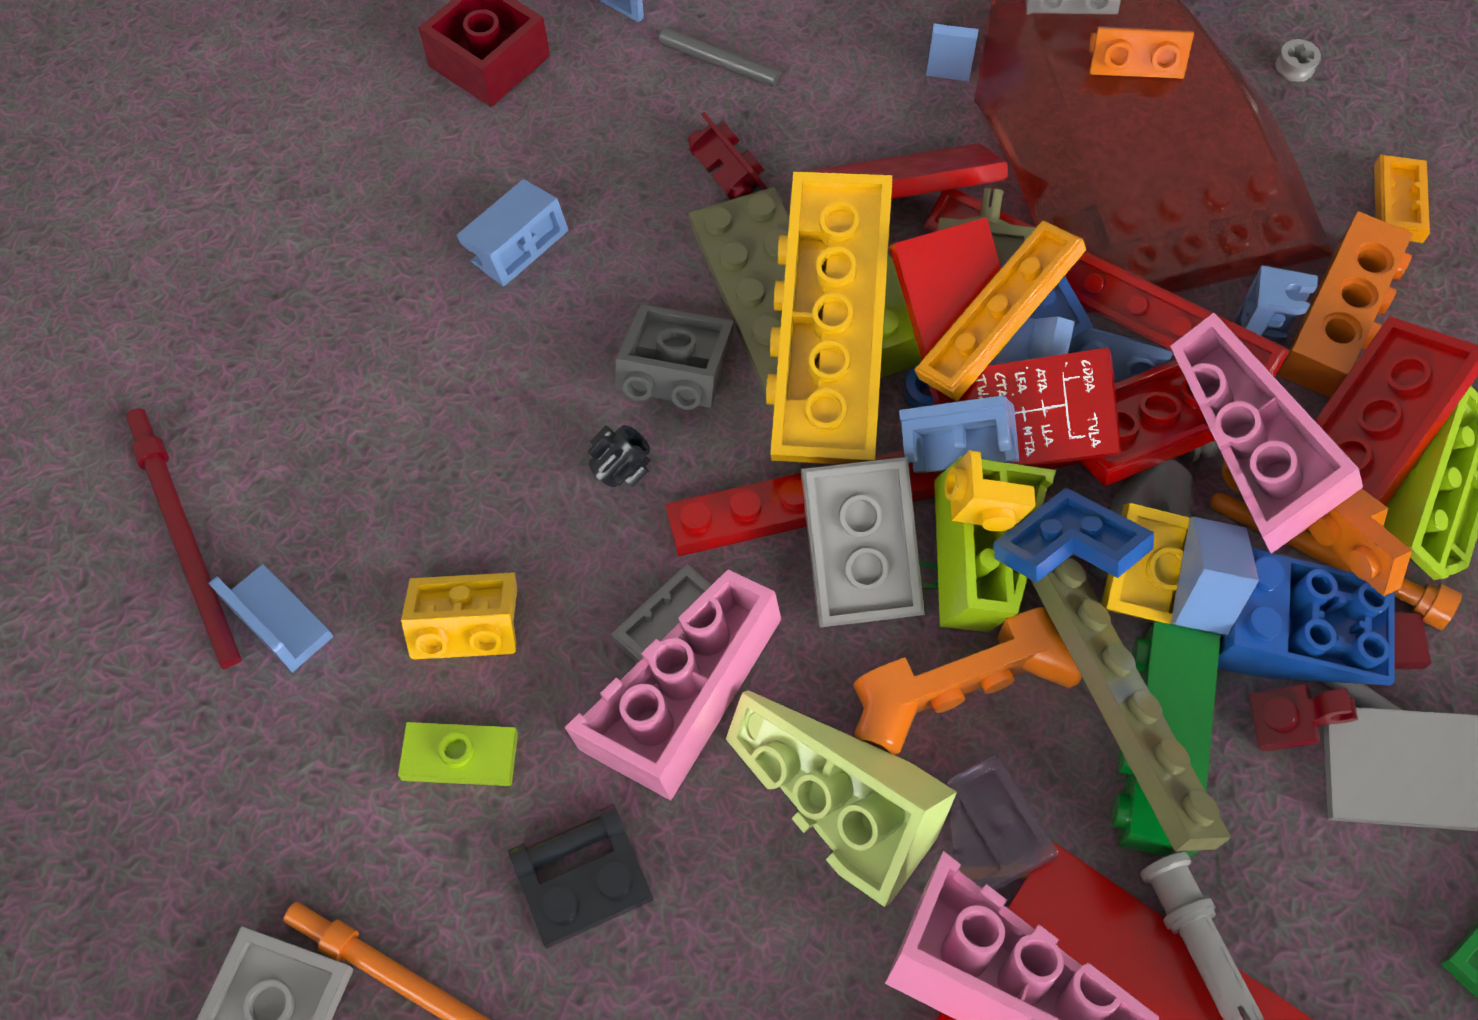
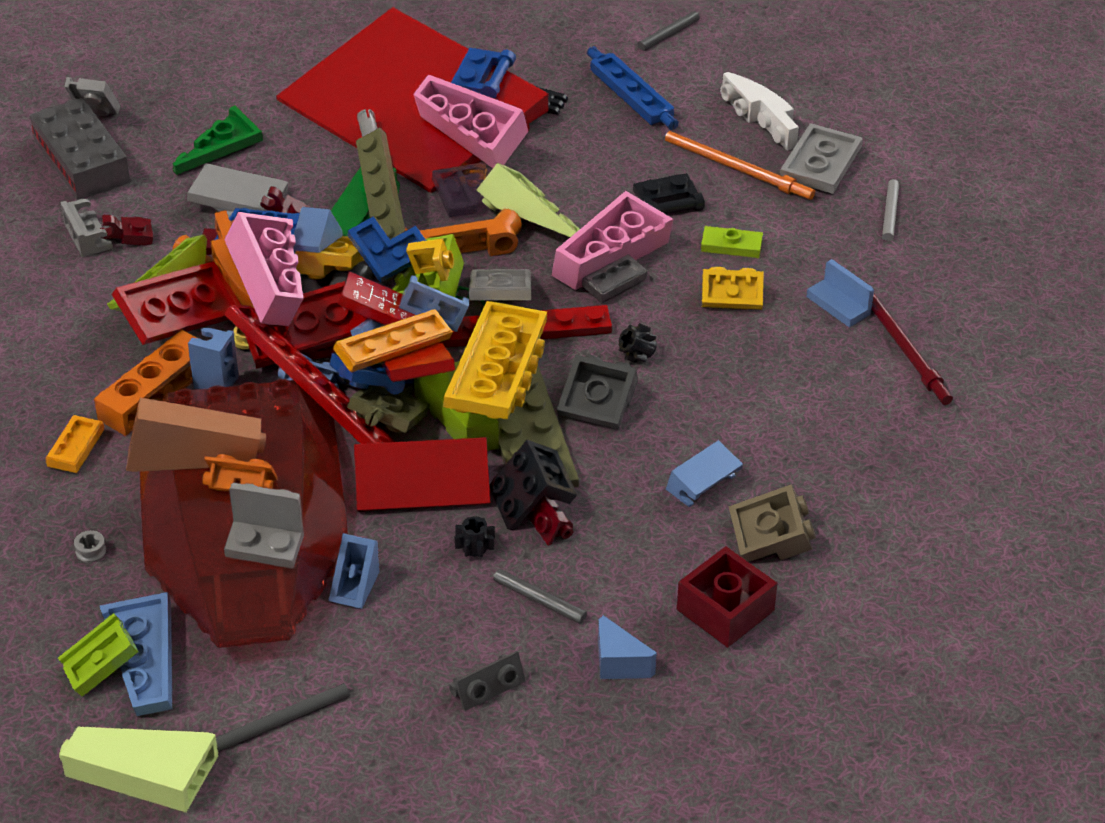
camera: 175 degrees left, 20 degrees down
(138, 893) = (890, 210): none -> light grey bar
(421, 158) = (772, 525): none -> dark tan plate
(740, 167) = (526, 479): none -> black bracket
(814, 106) = (474, 536): none -> black gear
(1228, 74) = (182, 435): none -> nougat slope

